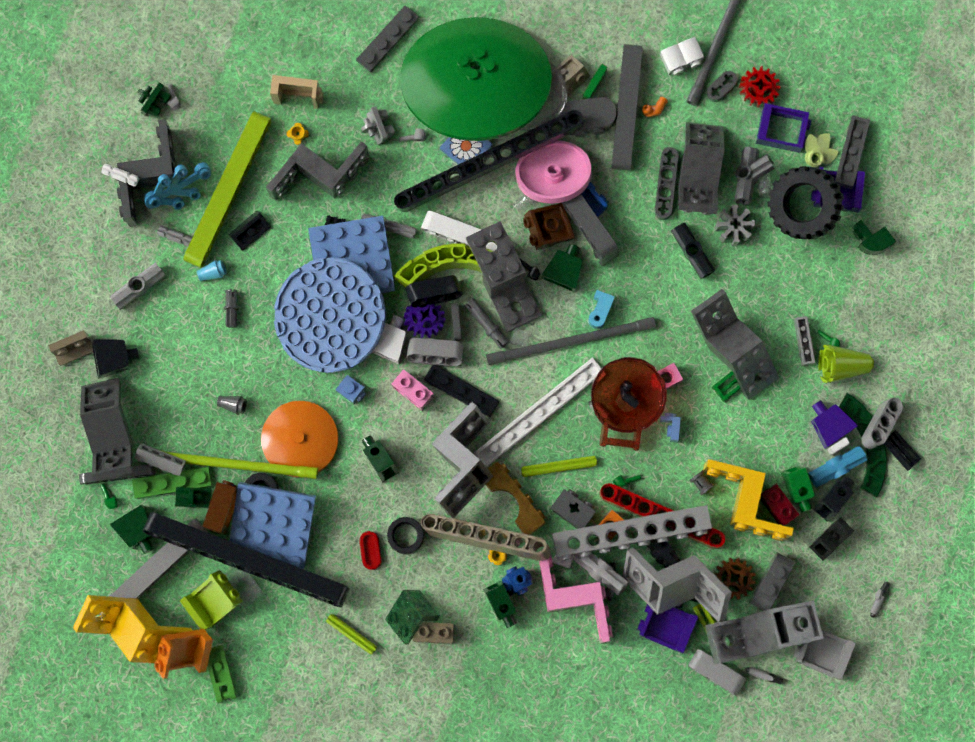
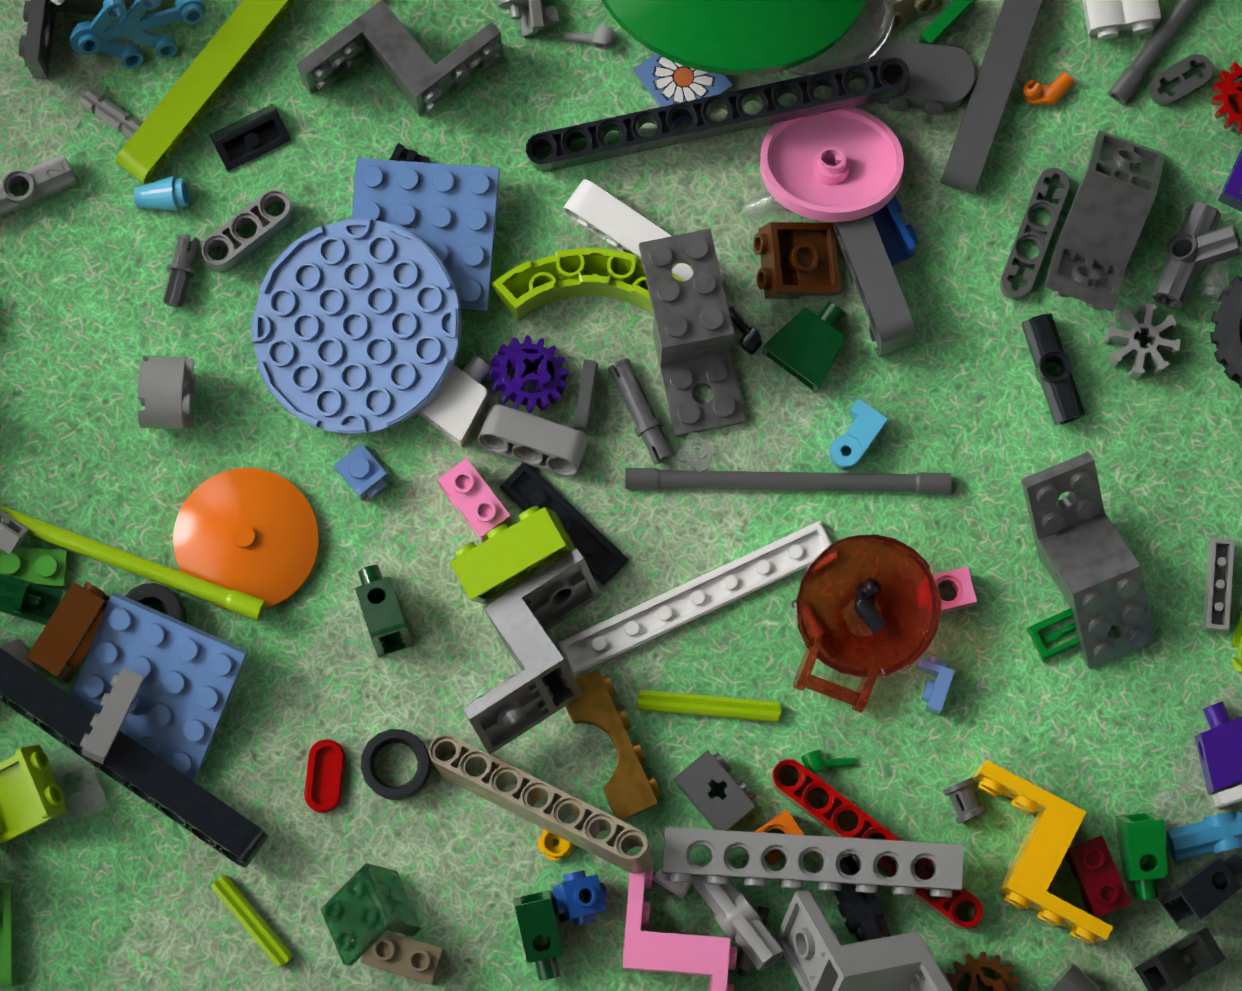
camera: 10 degrees right, 0 degrees up
(234, 404) = (141, 446): dark grey cone -> none
(240, 372) = (166, 392): none -> light grey brick
(253, 549) = (114, 711): none -> light grey piece
(261, 270) = (255, 215): none -> light grey beam
(396, 228) = (519, 196): light grey axle -> none
(433, 291) = (558, 328): black beam -> none
(438, 413) = (511, 554): none -> lime brick

